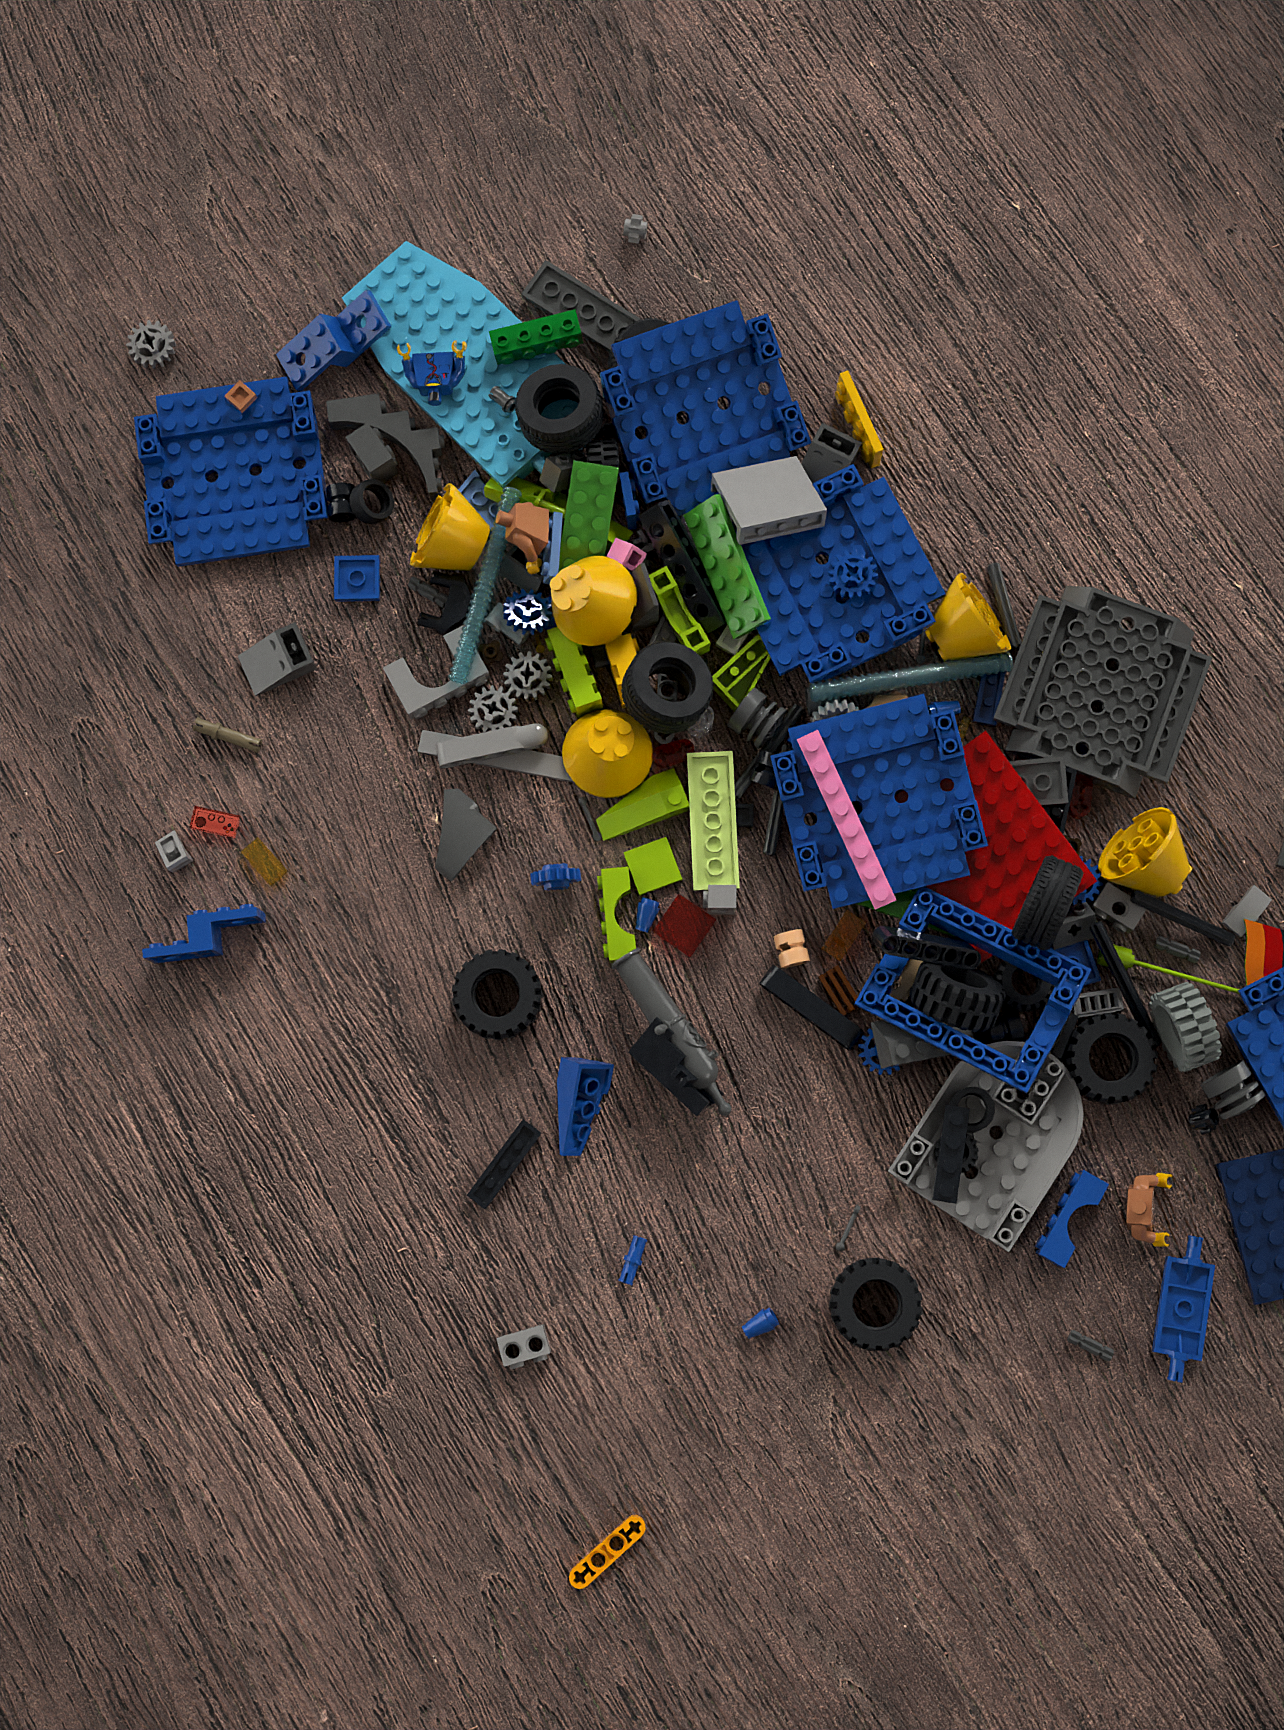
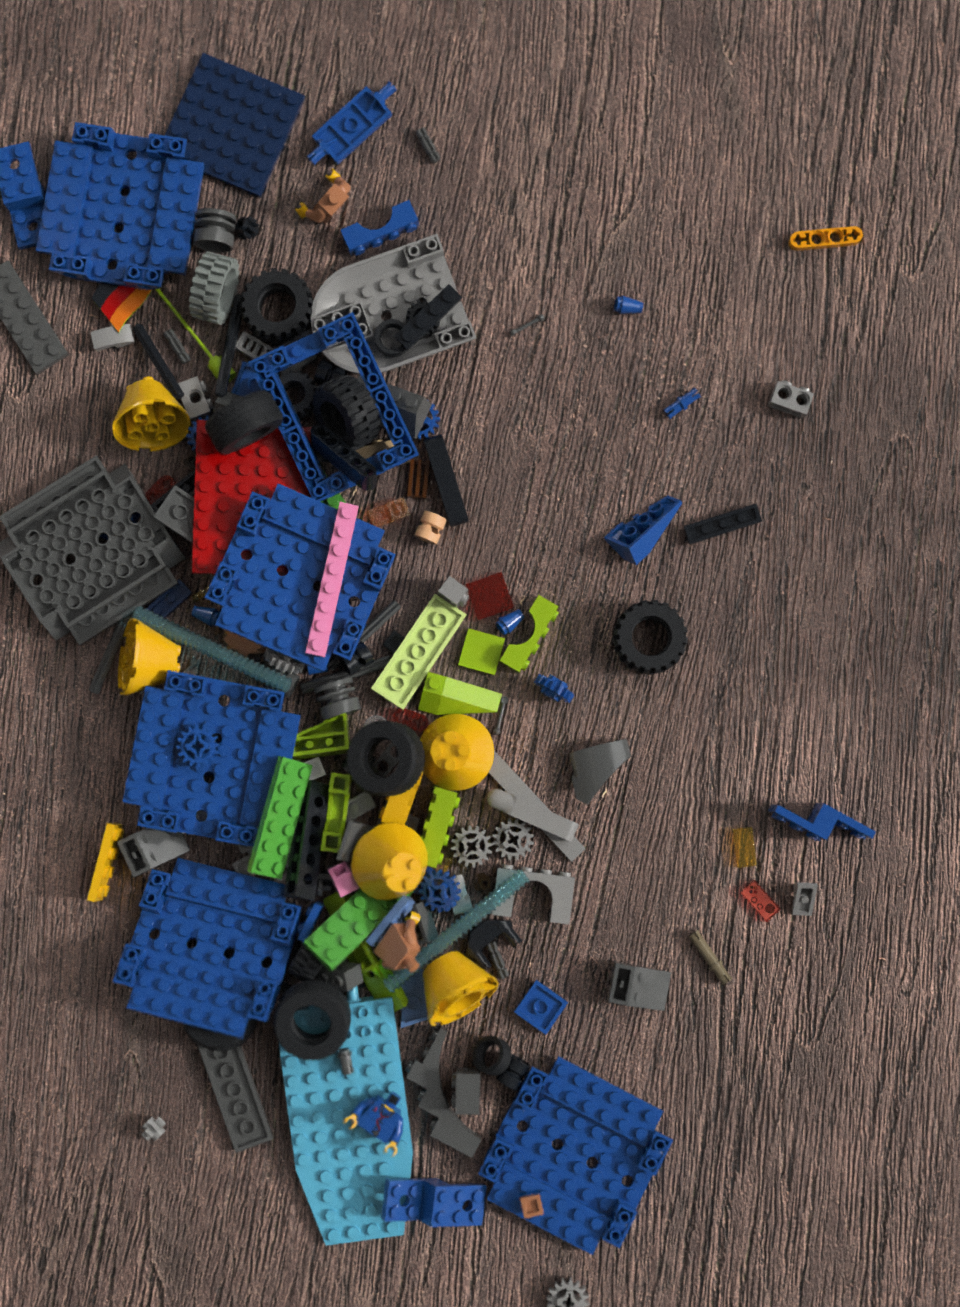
camera: 150 degrees left, 5 degrees up
(536, 337) = (288, 1091): green brick -> none
(671, 1044) = (559, 515): dark grey piece -> none
(770, 499) = (214, 844): light grey panel -> none
(908, 1299) = (551, 240): black tyre -> none

